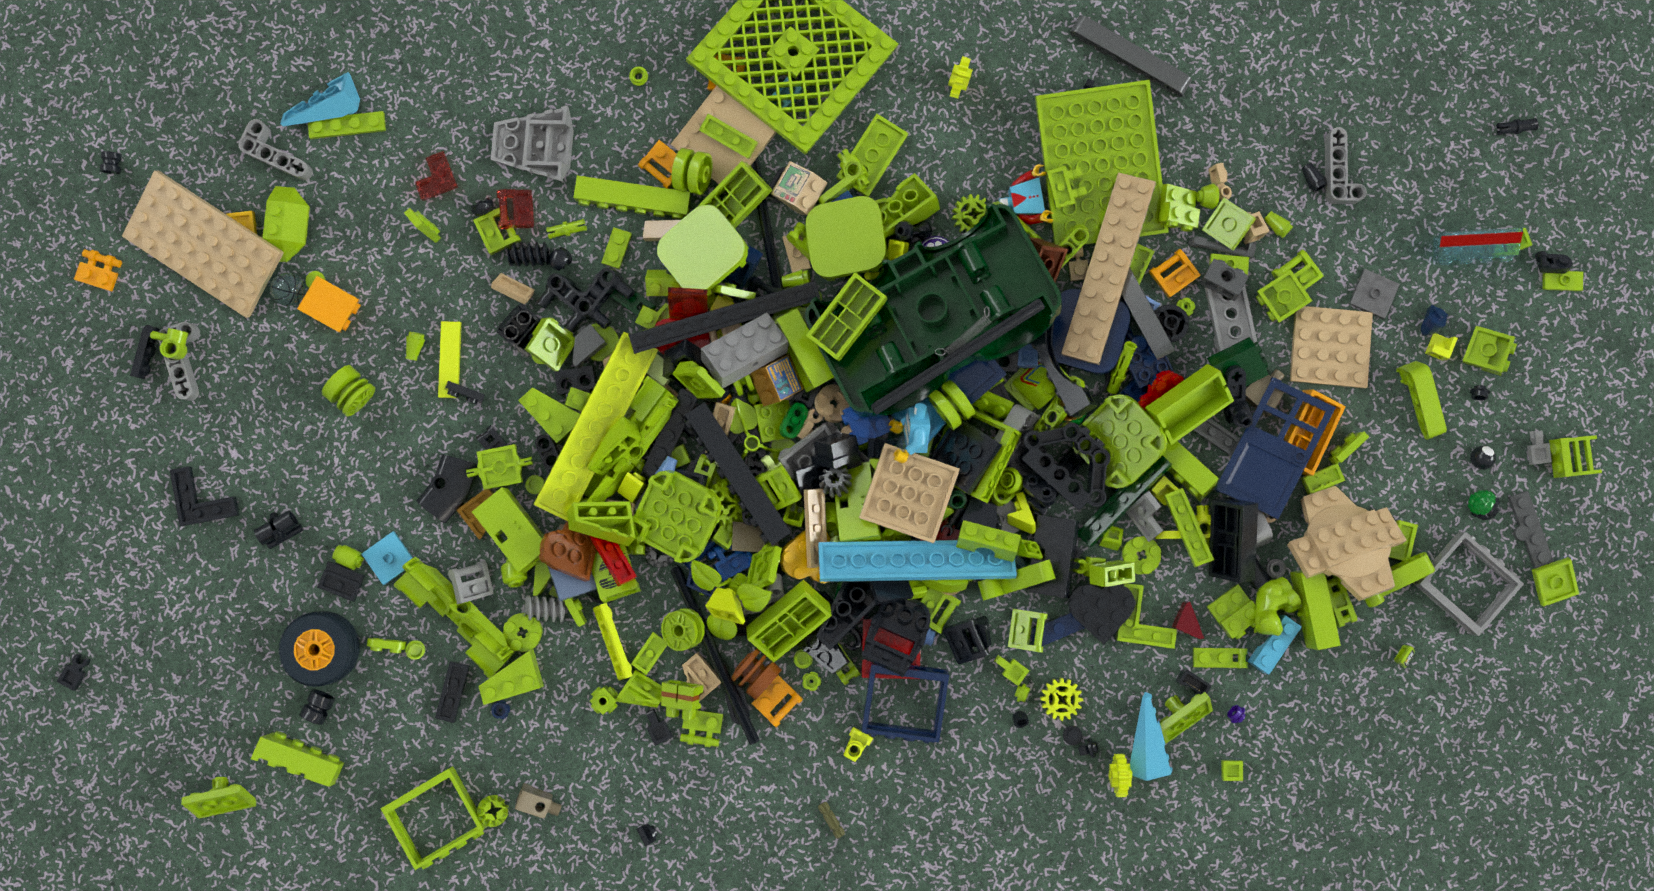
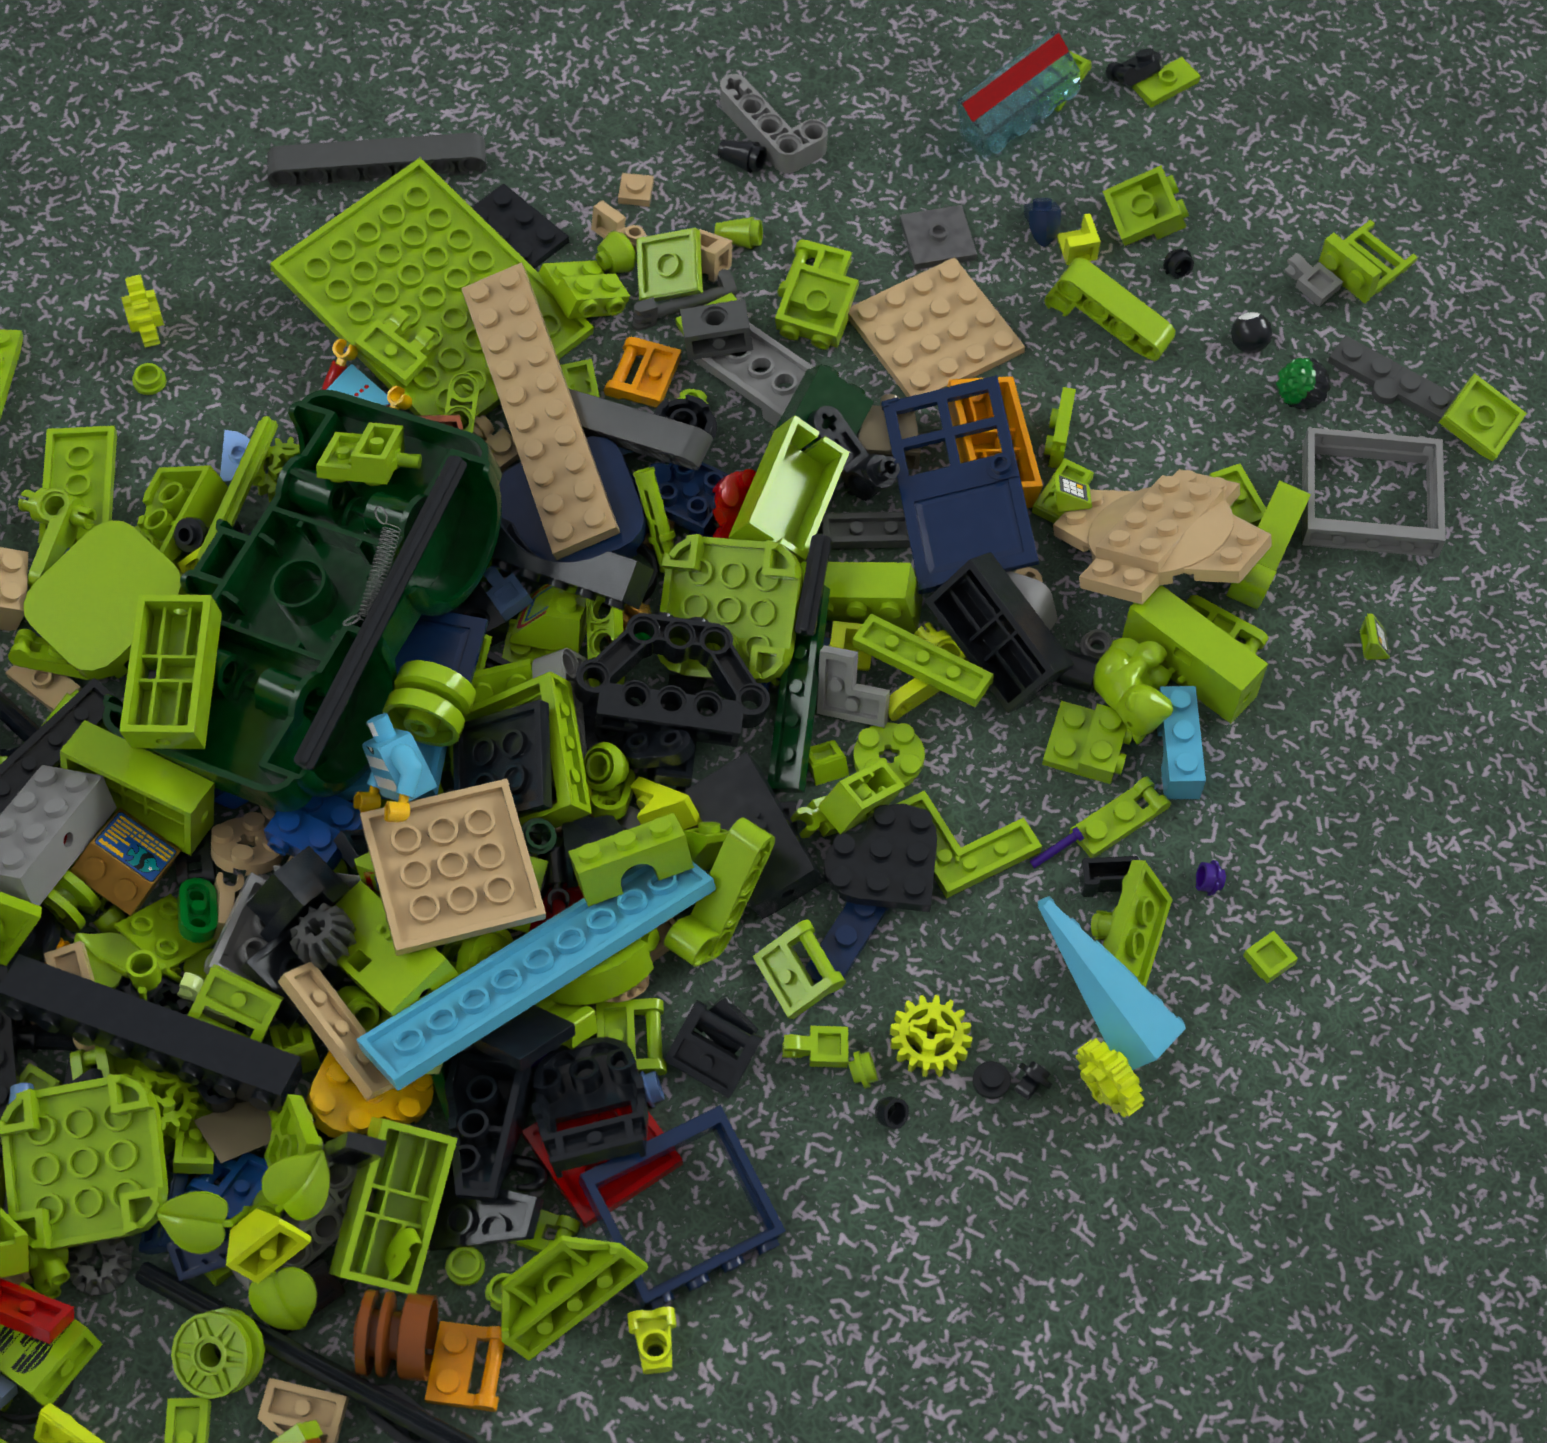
camera: 35 degrees left, 25 degrees down
(779, 643) = (400, 1249): none -> lime piece
(784, 597) = (354, 1149): none -> tile
(833, 705) = (562, 1289): none -> lime wedge
(941, 114) = (148, 379): none -> lime plate
(942, 217) = (243, 477): none -> lime axle
(954, 190) = (233, 450): none -> light blue plate
(1004, 261) = (366, 456): none -> lime plate
(1165, 460) = (813, 585): none -> black axle
(1173, 144) = (521, 225): none -> black plate
(1183, 653) = (1056, 848): none -> dark purple piece
(1187, 621) = (1032, 797): dark red slope -> none
(1246, 161) = (635, 189): none -> tan plate
(1323, 489) = (1071, 494): none -> lime slope

